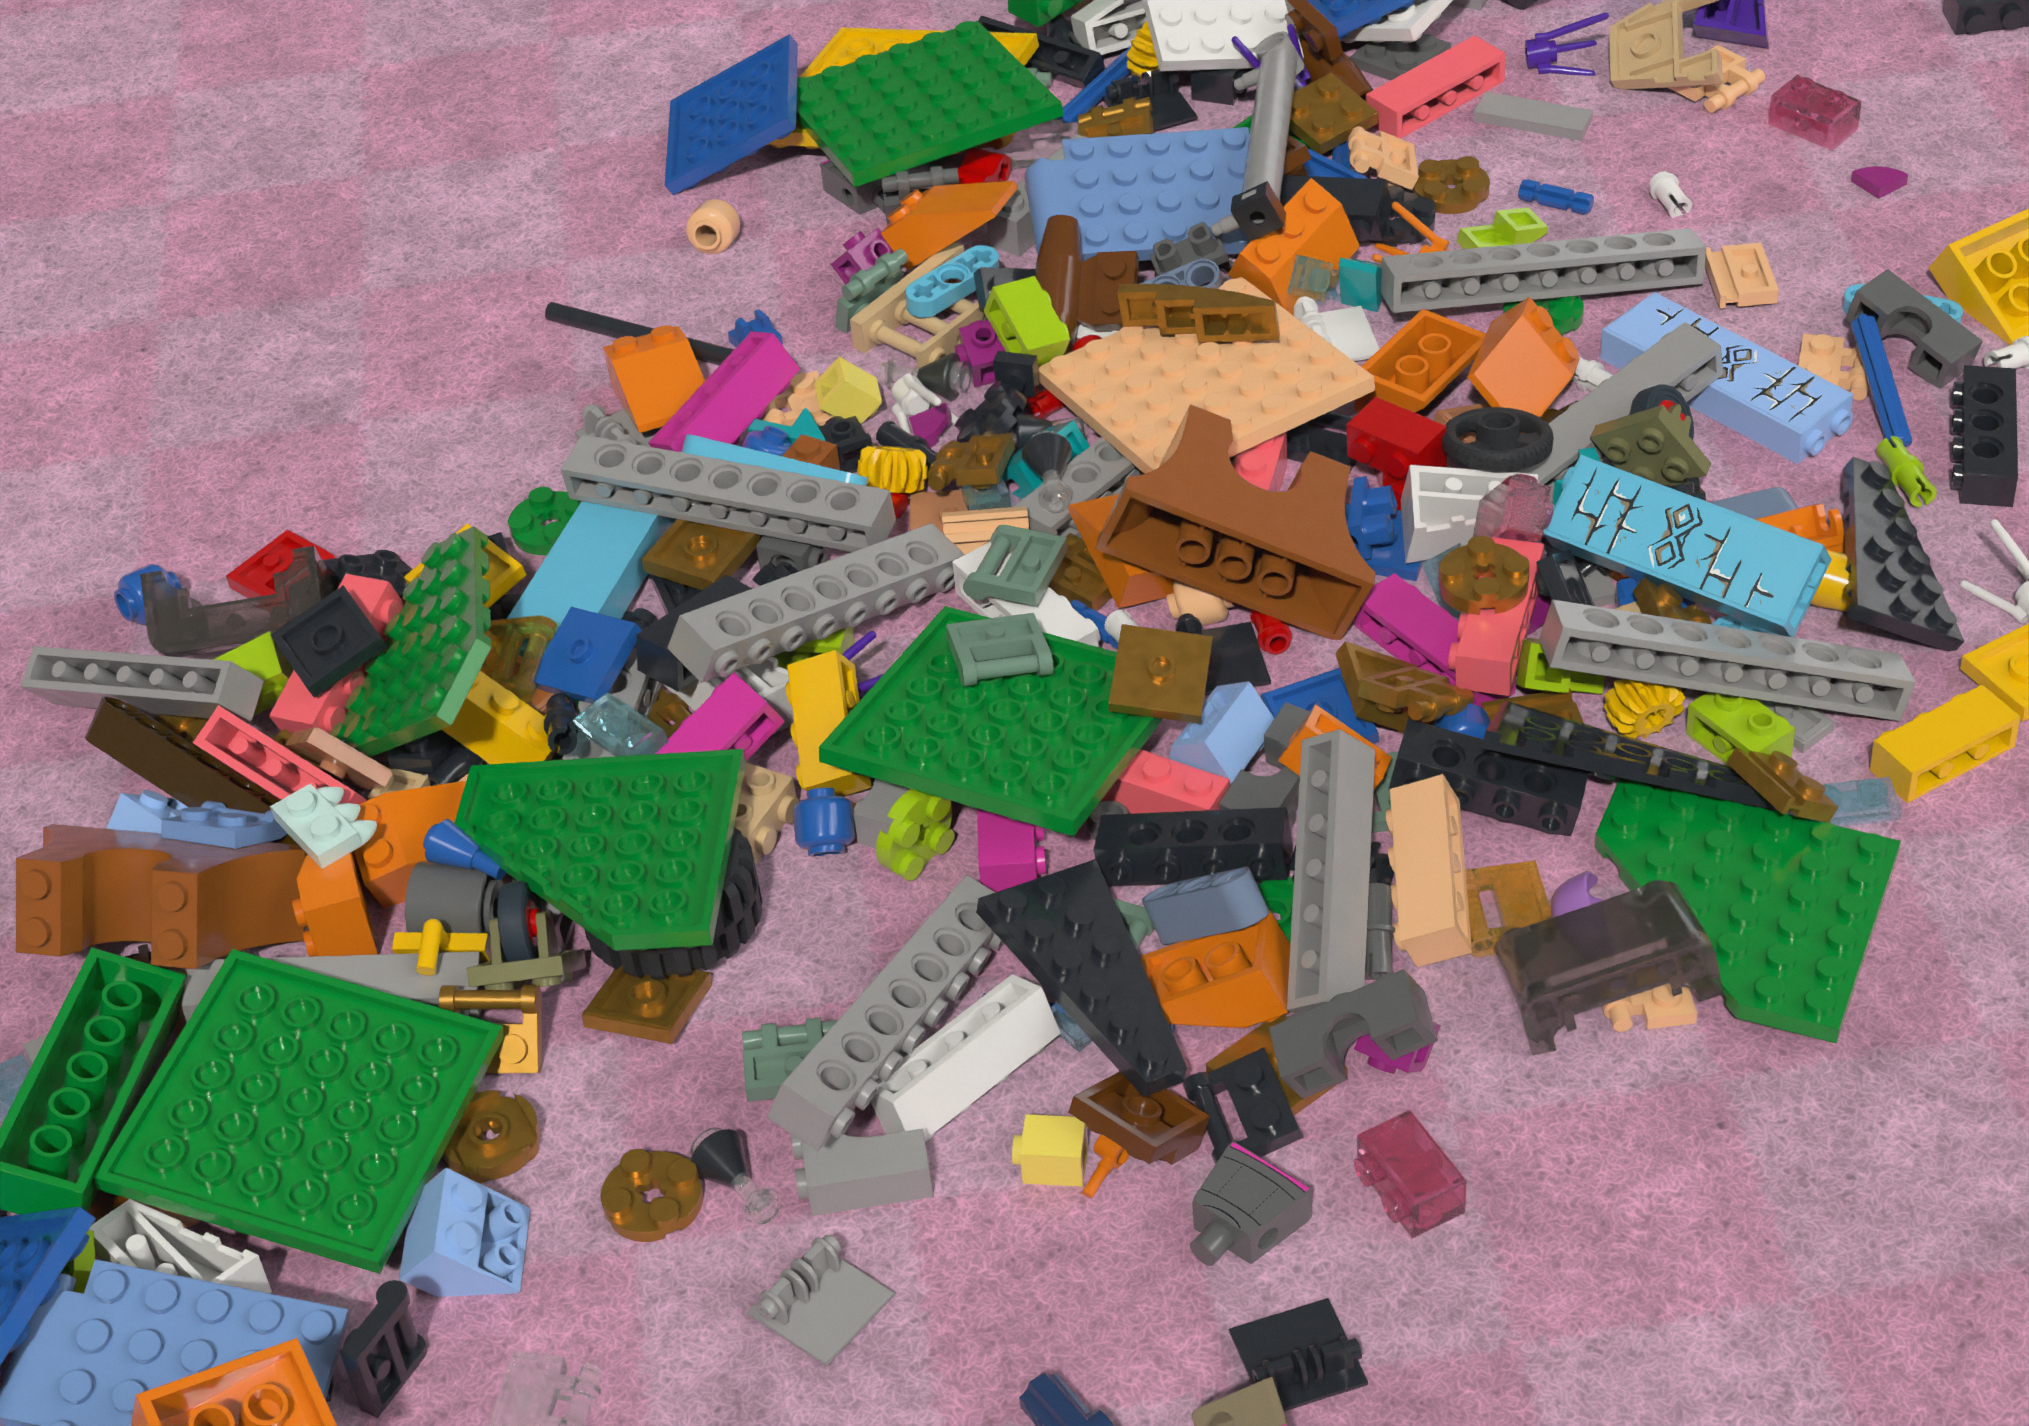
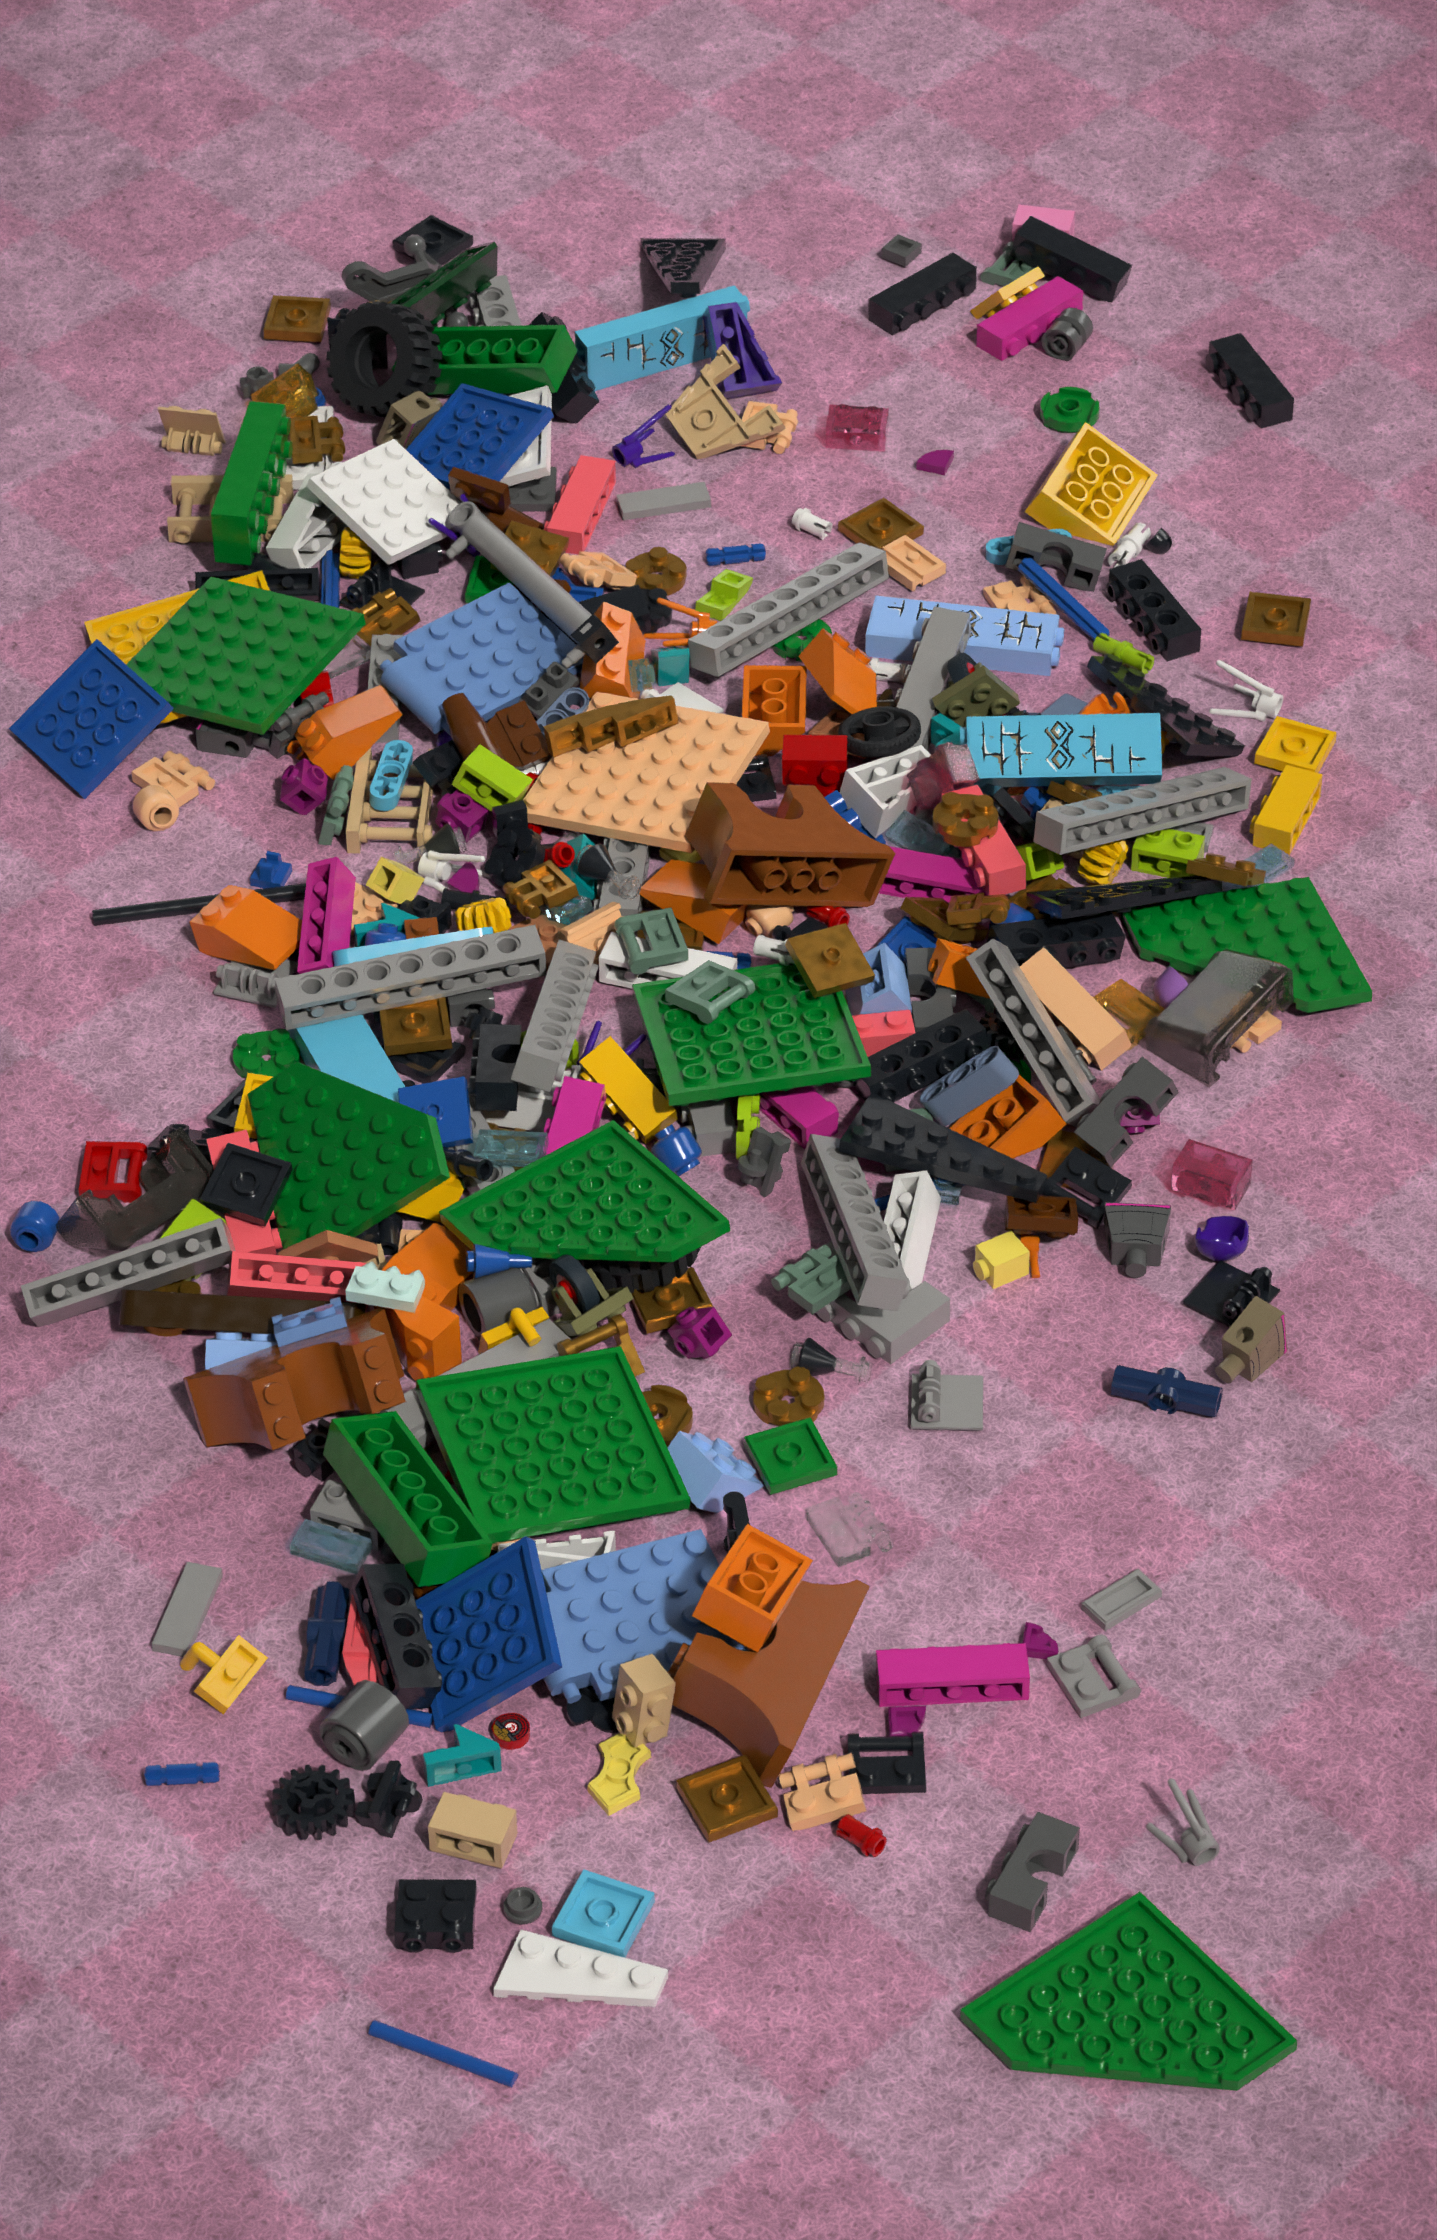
camera: 40 degrees left, 0 degrees up
(575, 1271) = (790, 1456): none -> green plate
(619, 1073) = (699, 1332): none -> magenta brick
(753, 204) = (169, 776): none -> light nougat plate
(892, 881) = (762, 1163): none -> dark grey hips
(1030, 423) = (560, 854): none -> red pin
(1356, 1257) = (1223, 1238): none -> dark purple hair
(1745, 222) = (880, 525): none -> pearl gold plate

